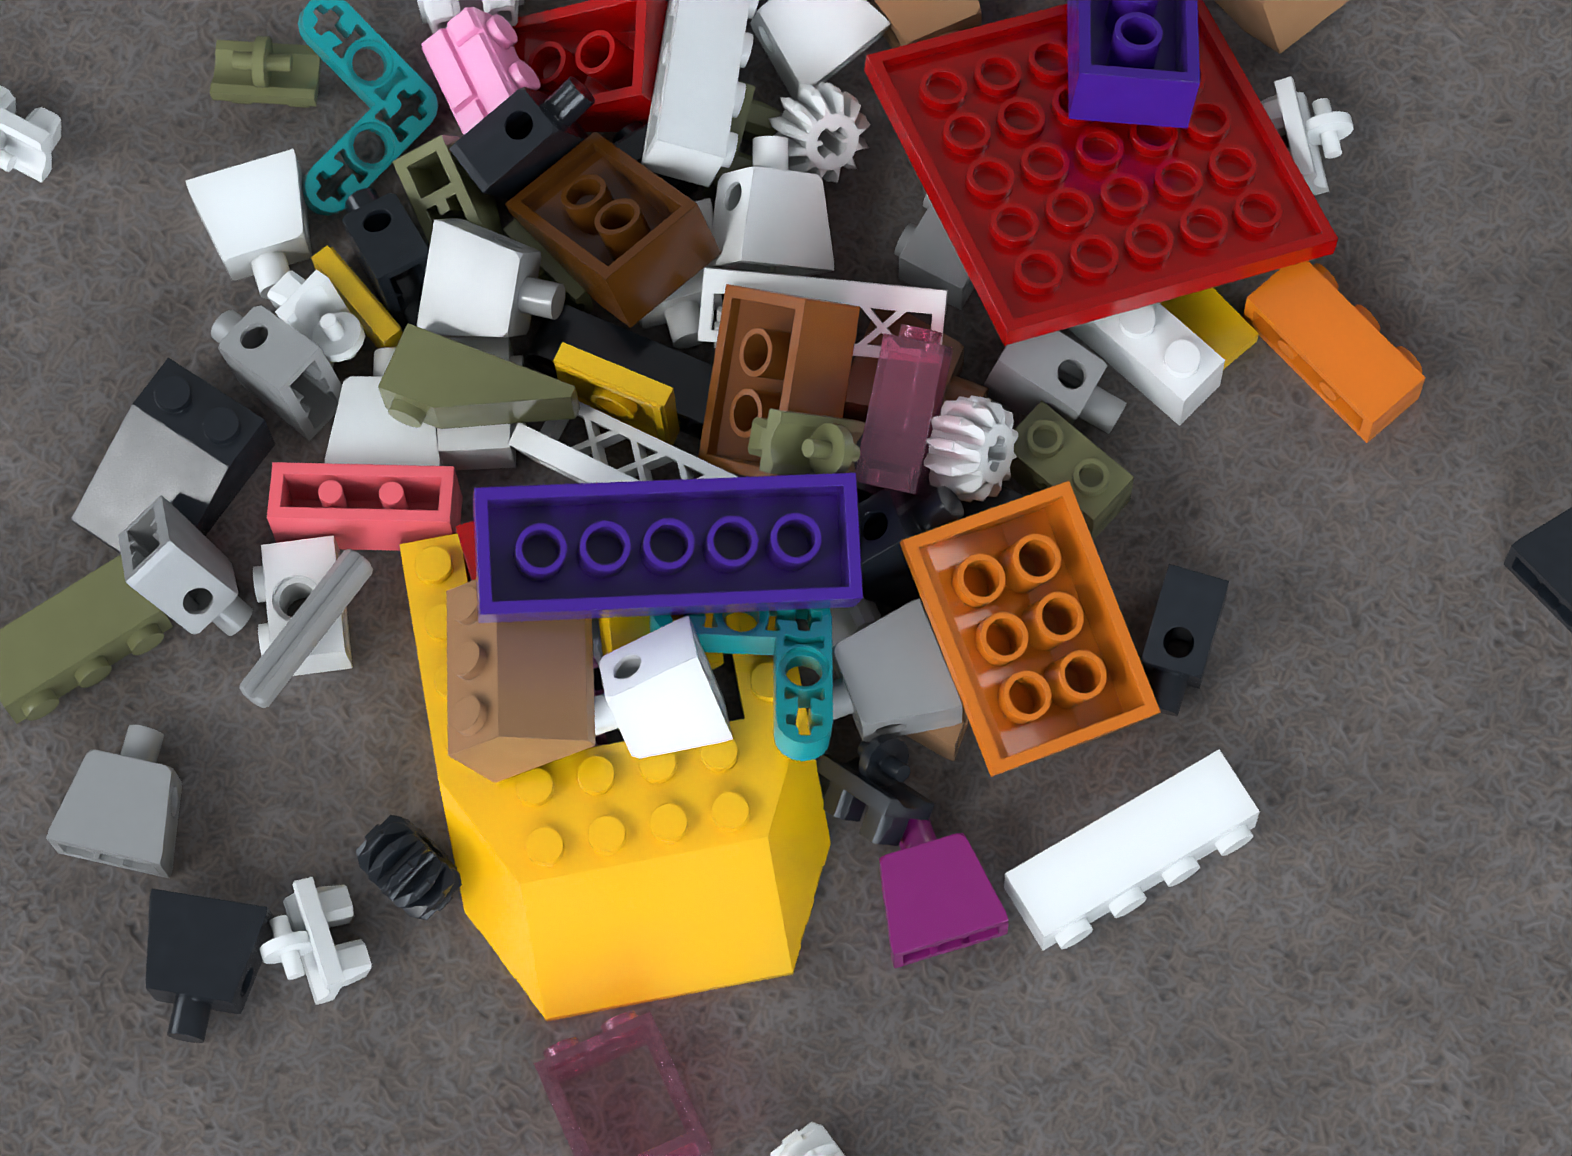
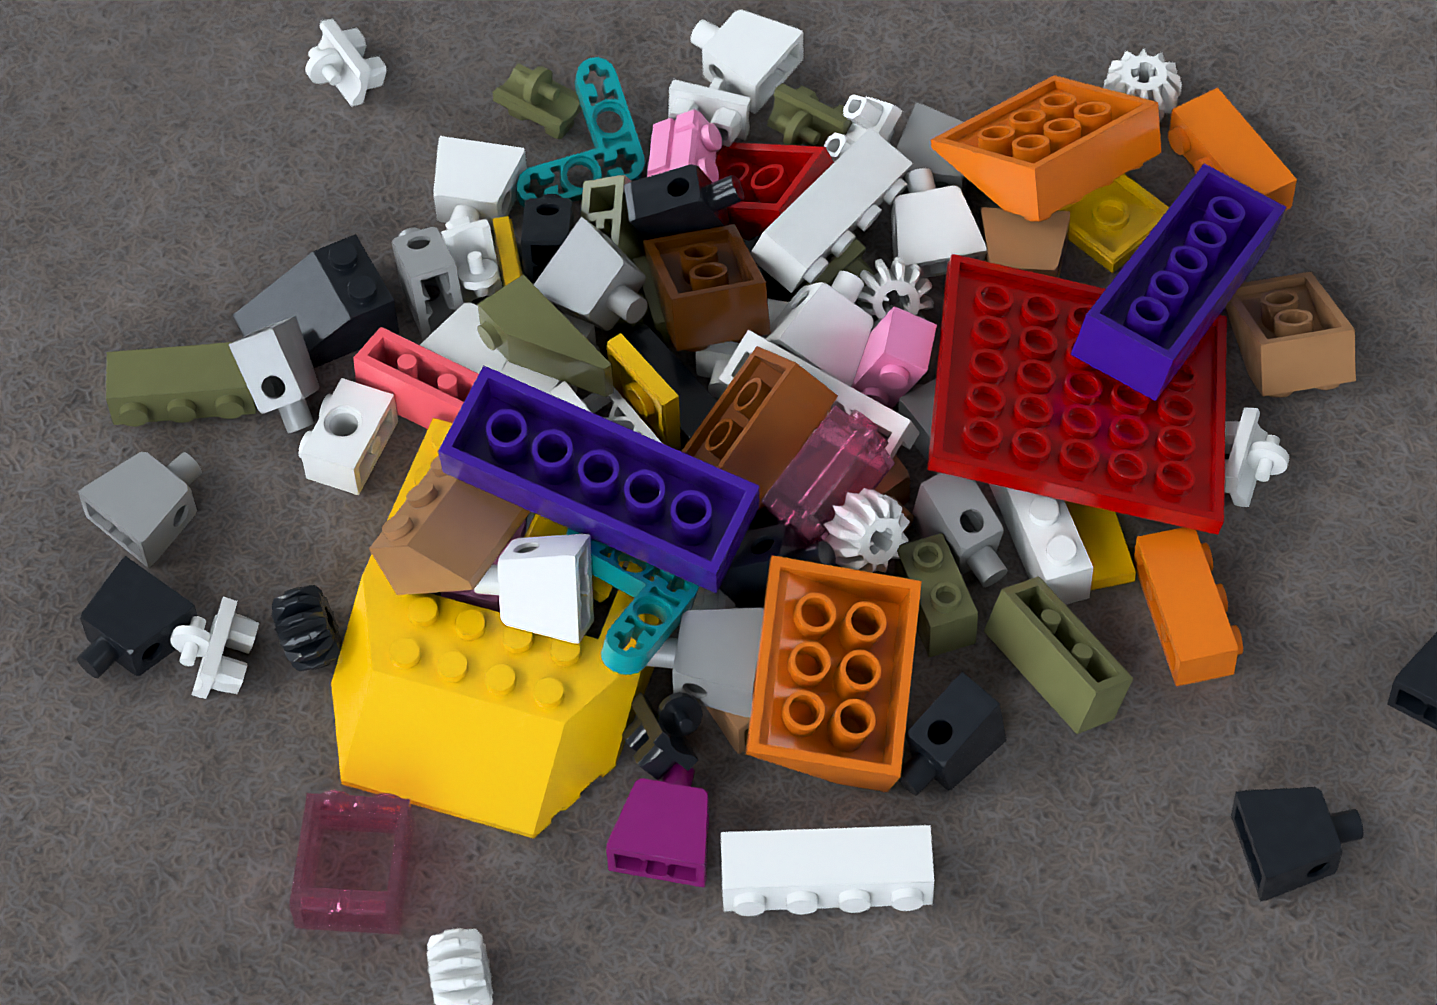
camera: 25 degrees right, 15 degrees down
(306, 628) = (335, 439): light grey axle -> none
(805, 443) = (740, 454): olive hips -> none
(871, 215) = (895, 357): none -> bright pink brick
(1237, 478) = (1058, 655): none -> olive brick

